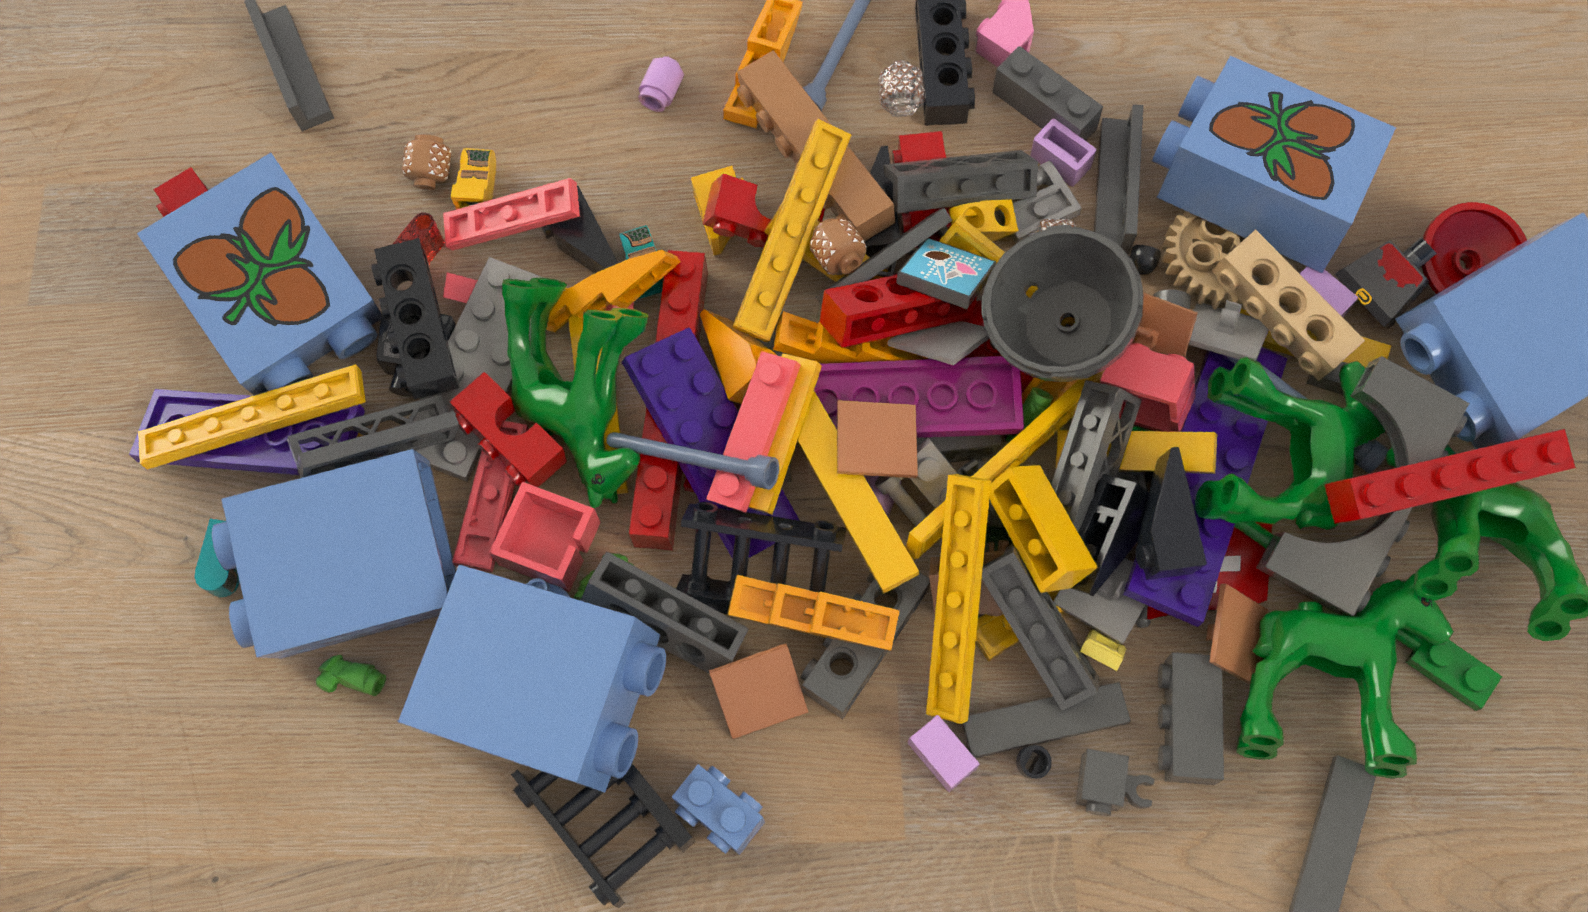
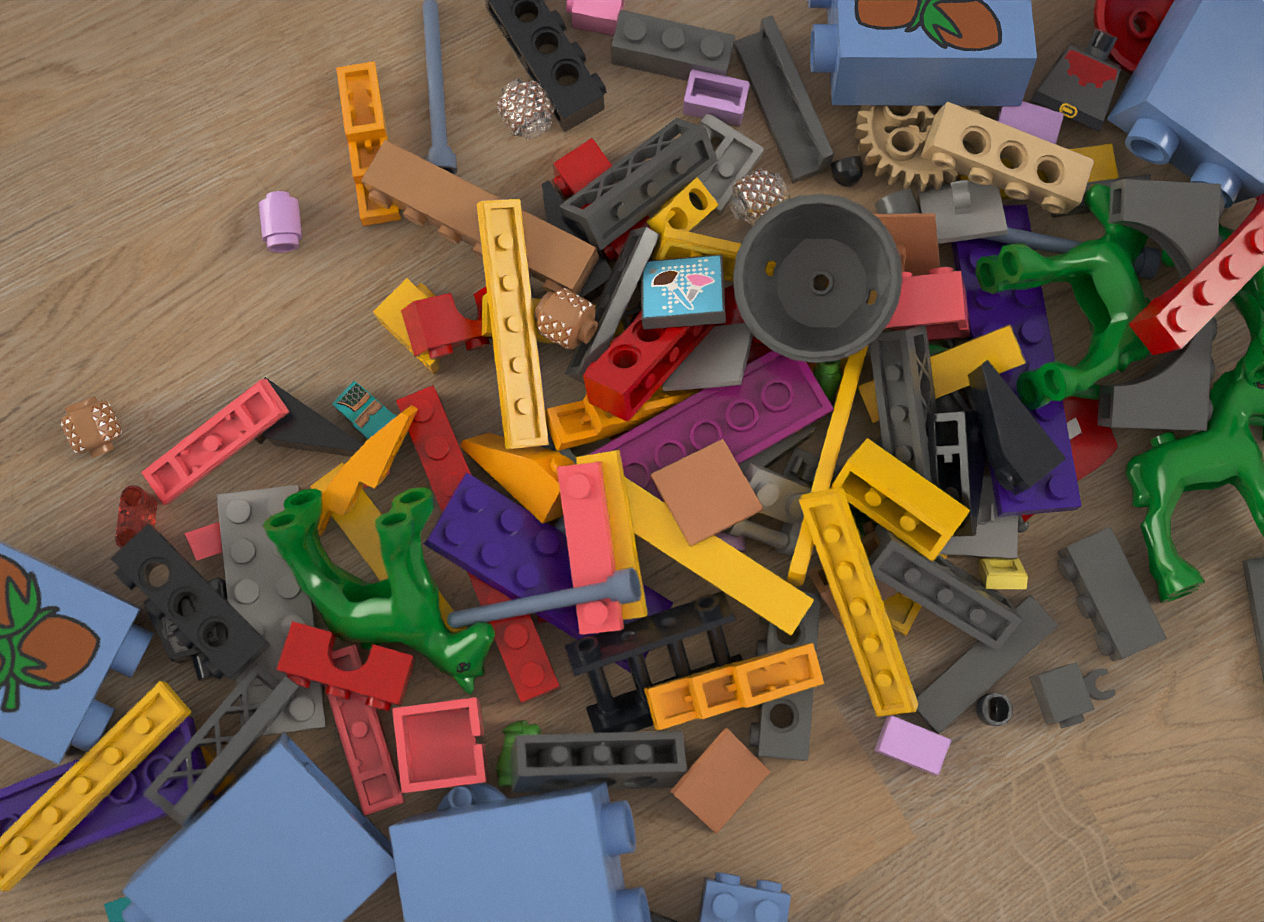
camera: 35 degrees left, 10 degrees up
(475, 177) = (151, 420): yellow leg -> none
(1235, 633) = (1111, 498): nougat piece -> none

